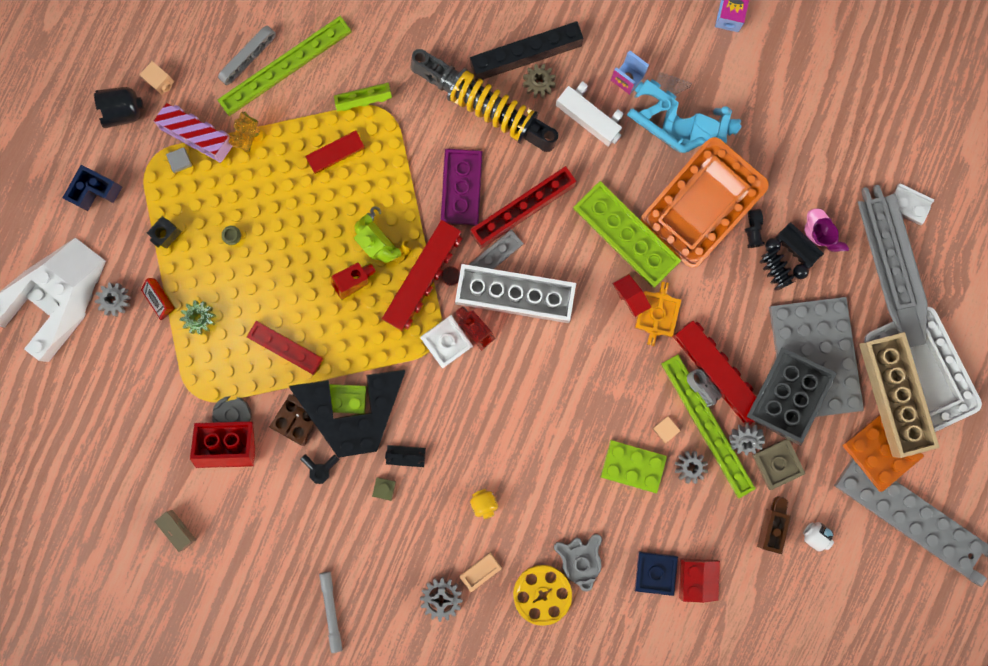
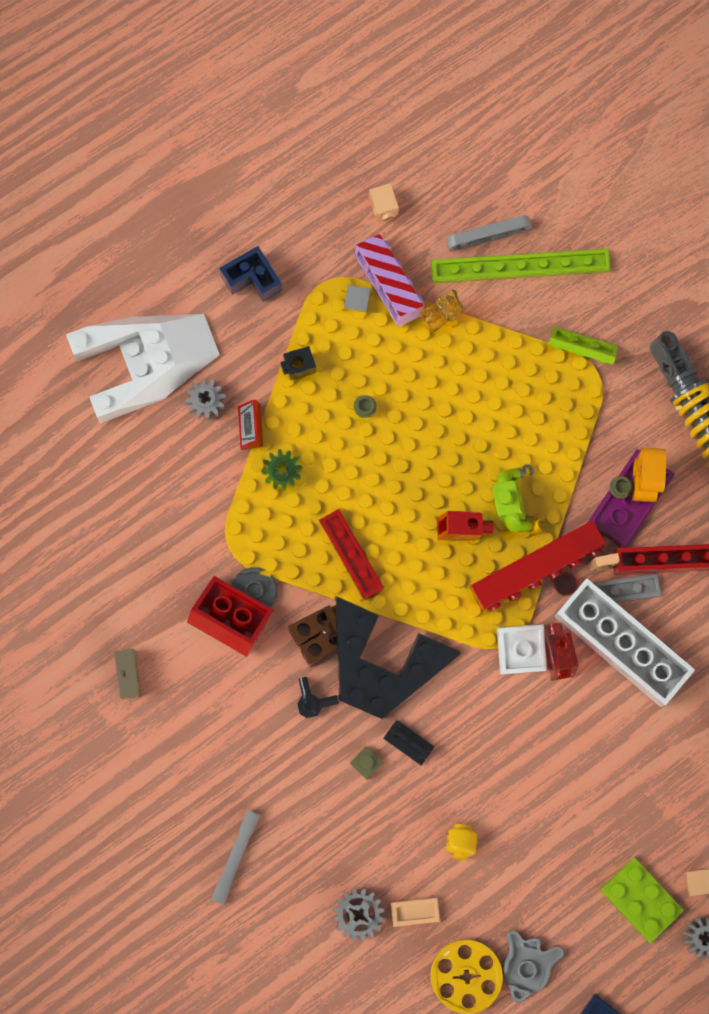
camera: 25 degrees right, 5 degrees down
(118, 106) = (329, 208): black cylinder -> none
(335, 152) = (521, 385): red tile -> none
(348, 398) = (385, 647): lime plate -> none
(449, 183) = (621, 487): none -> olive plate
(461, 162) = (649, 474): none -> light orange beam
(467, 245) = (603, 562): none -> light nougat tile

